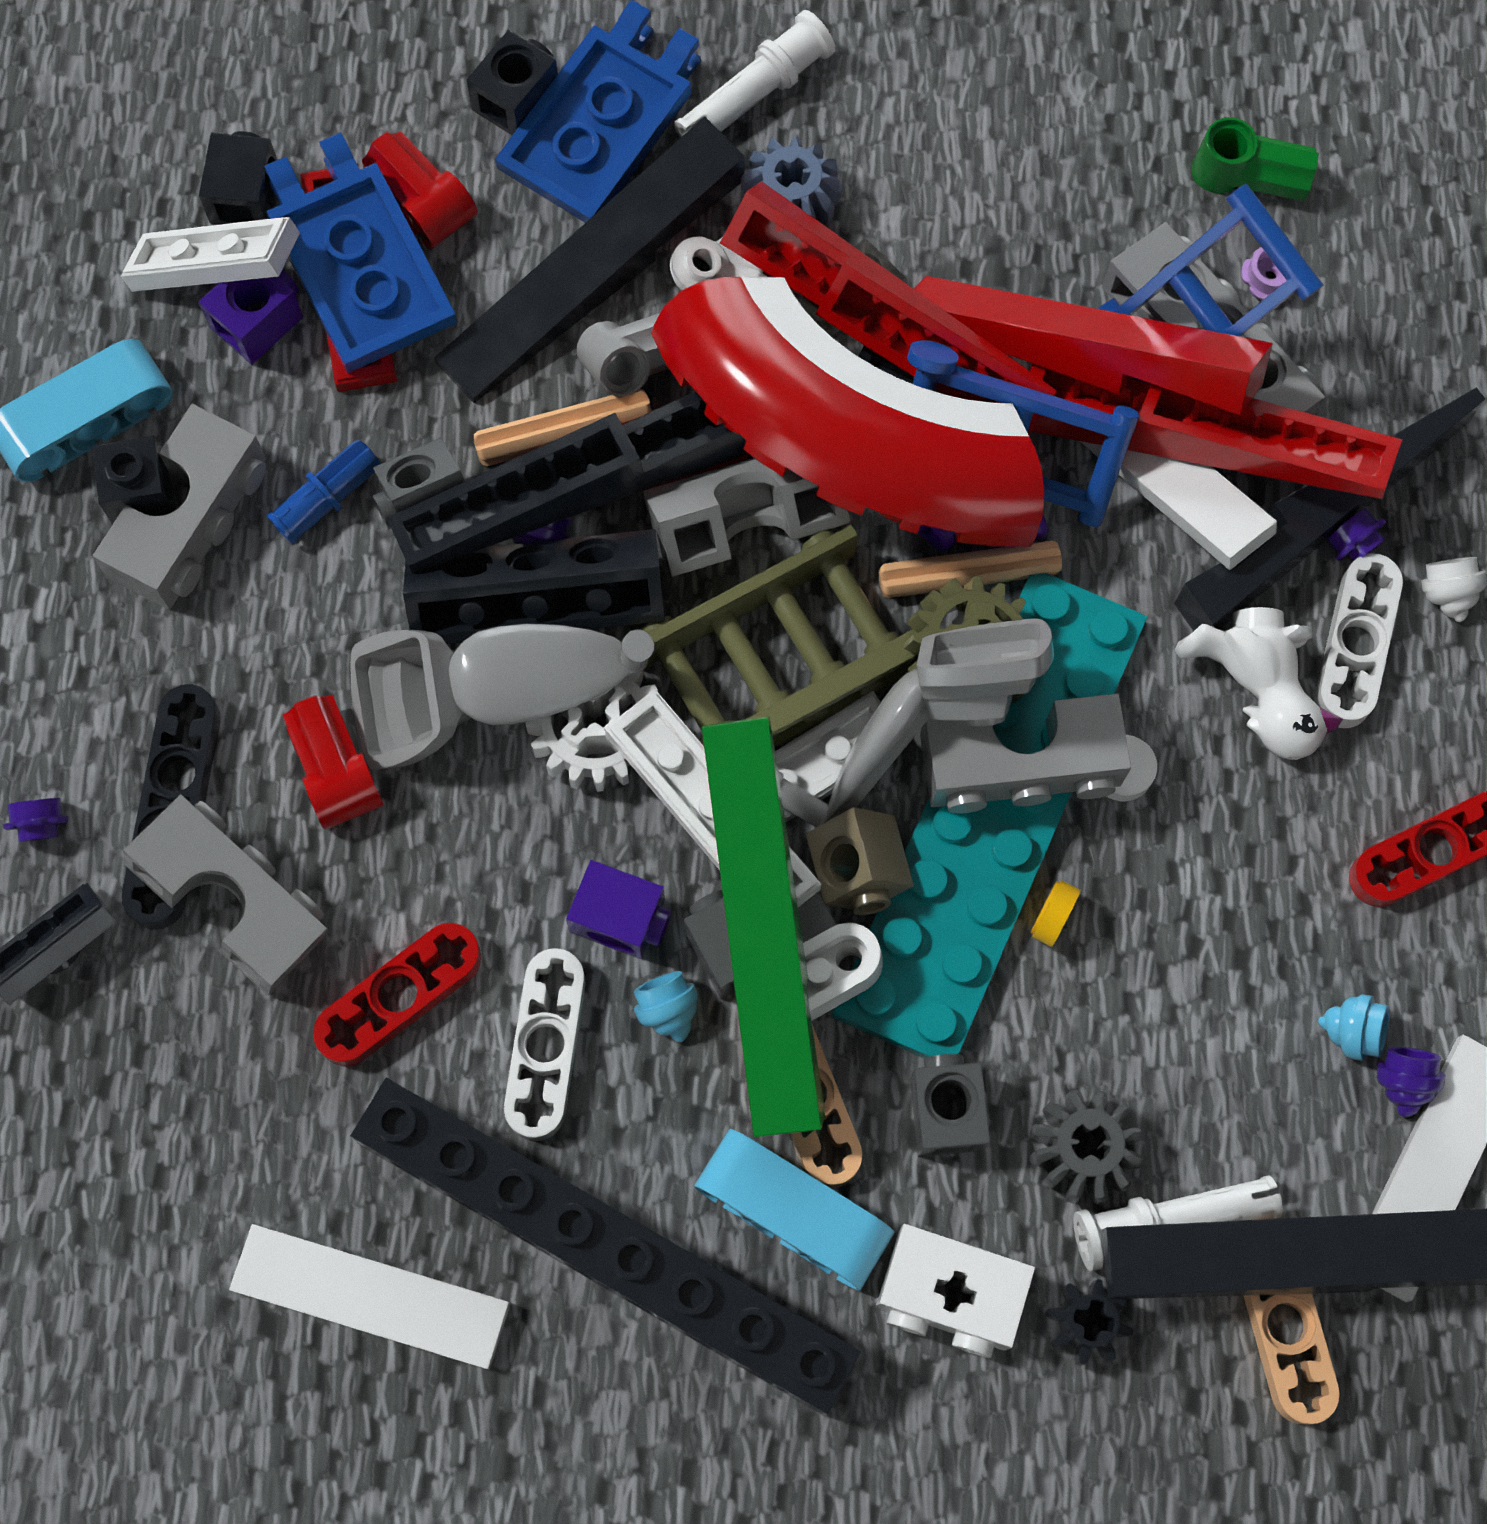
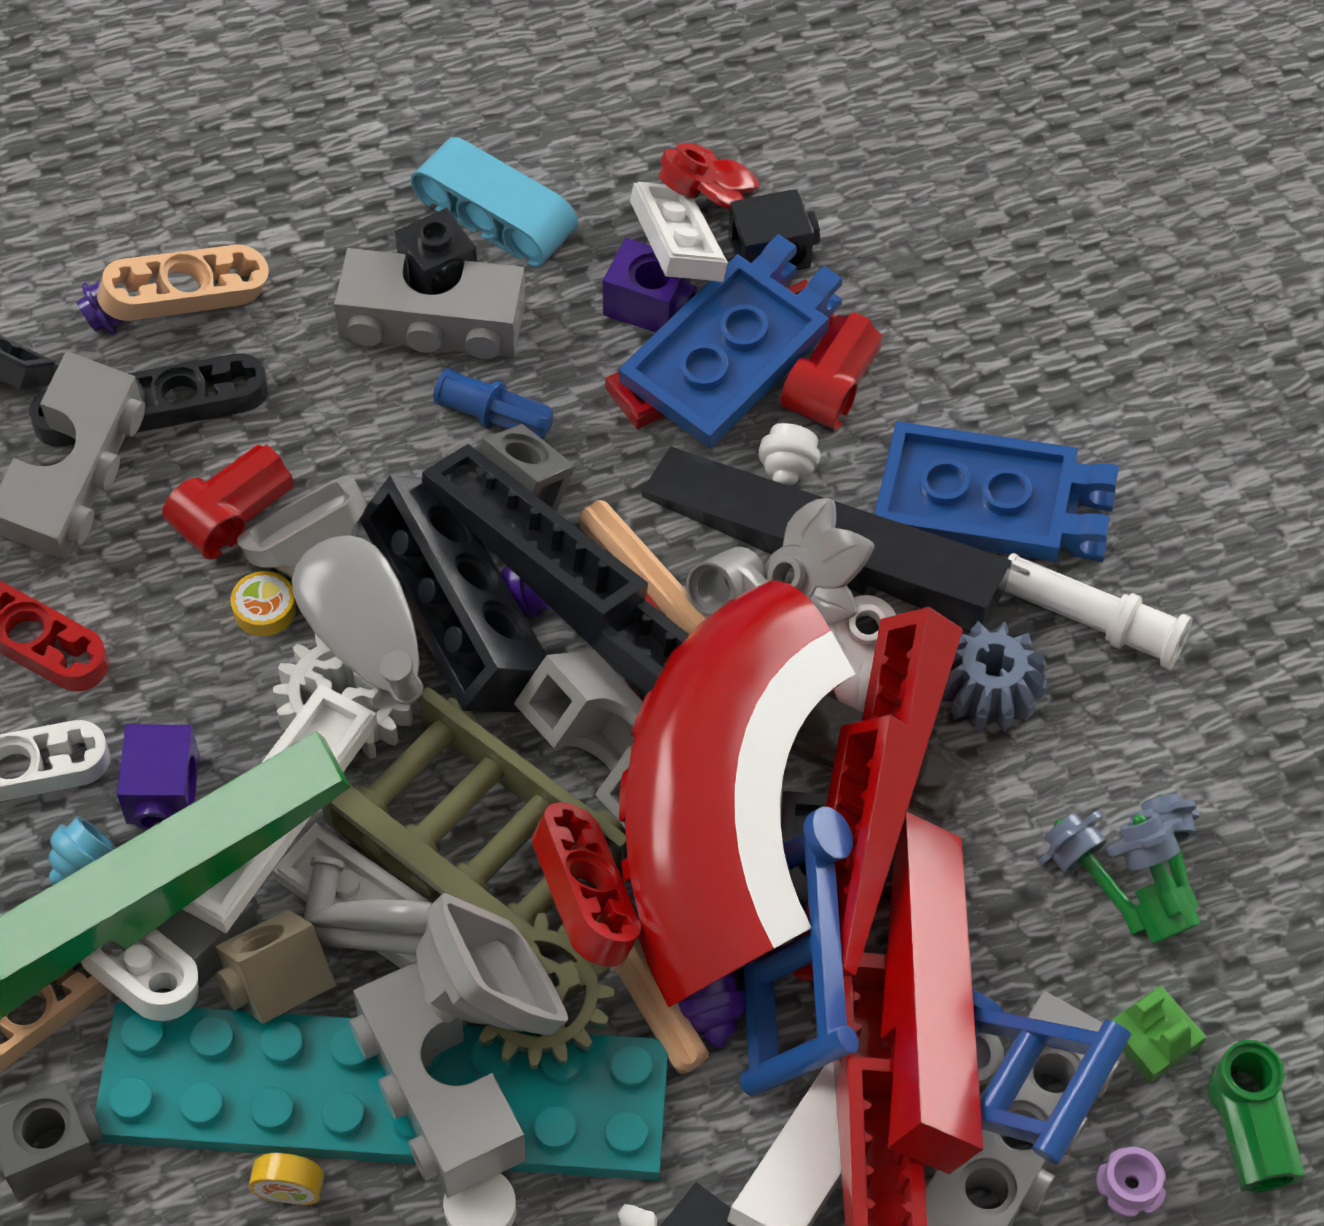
camera: 70 degrees right, 15 degrees down
(63, 750) = (165, 300): none -> light nougat beam
(141, 212) = (696, 169): none -> red plate
(457, 769) = (263, 603): none -> tile
(495, 260) = (789, 453): none -> white plate
(511, 60) = (982, 387): black brick -> none
(634, 268) = (822, 559): none -> light grey plate
(956, 562) = (578, 905): none -> red beam
(1025, 130) = (1147, 841): none -> plant
(1151, 202) = (1159, 1034): none -> bright green tile

